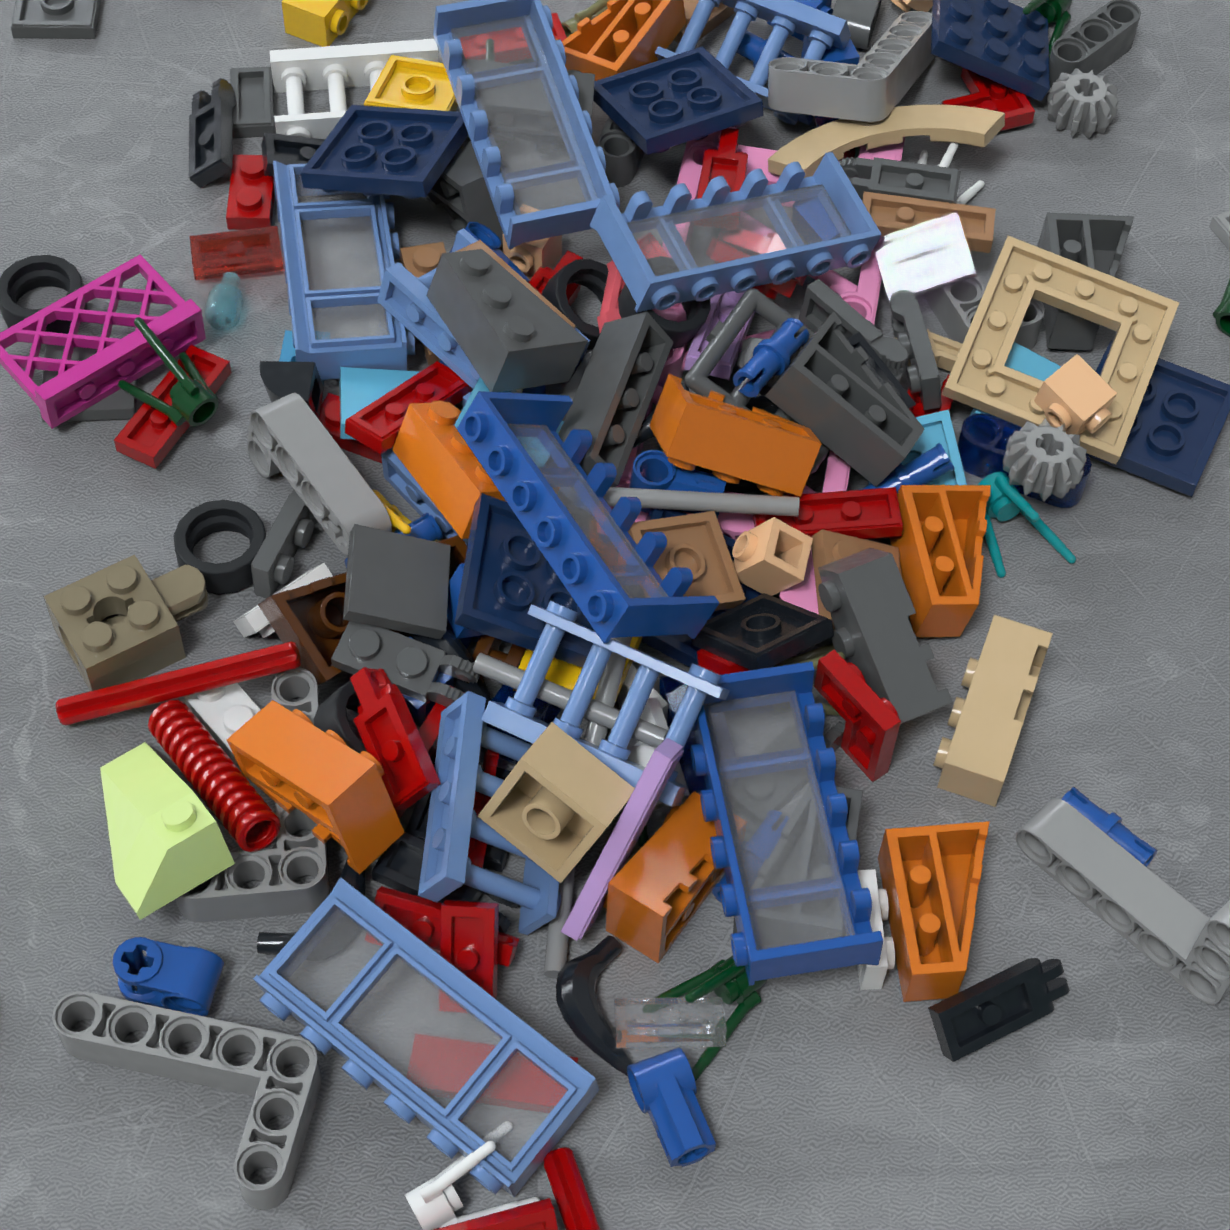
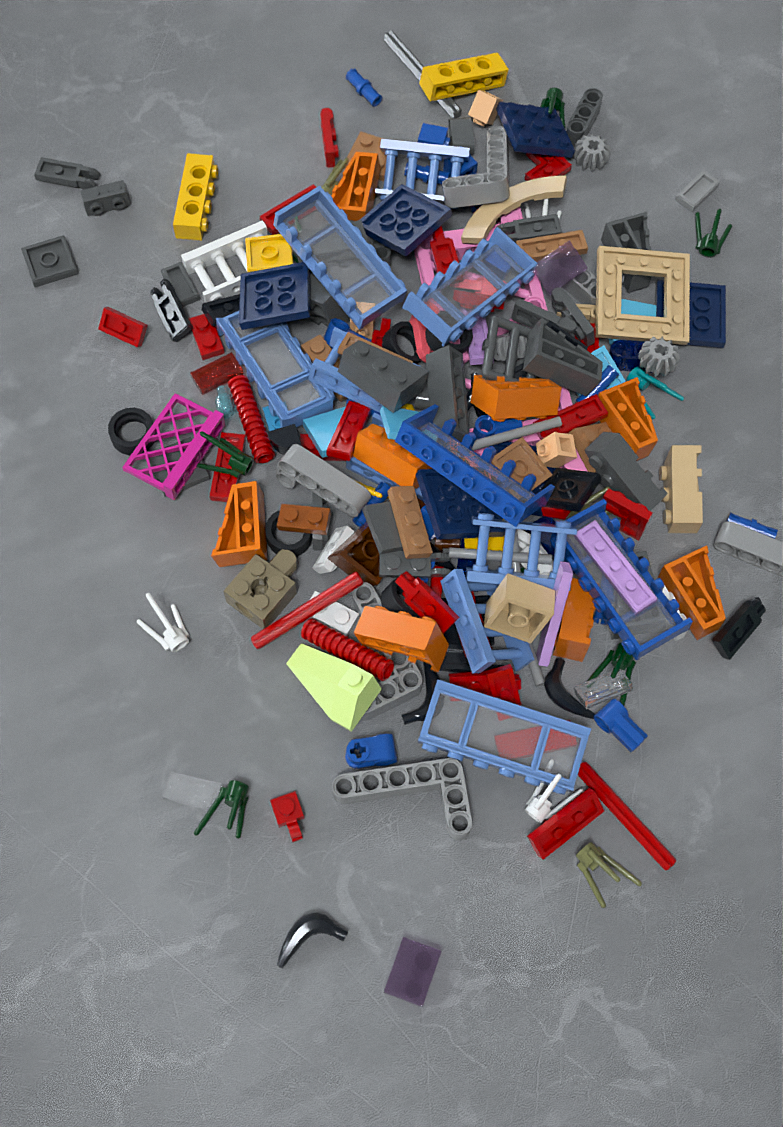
camera: 20 degrees left, 10 degrees up
(117, 134) = (122, 327): none -> red plate
(141, 504) = (243, 527): none -> orange wedge
(251, 526) = (304, 519): none -> dark orange plate
(254, 339) = (251, 419): none -> red piece
(426, 583) = (409, 522): none -> medium nougat plate
(771, 357) = (518, 349): blue pin -> none
(781, 796) = (615, 567): none -> lavender tile
(1076, 398) = (662, 320): light nougat brick -> none

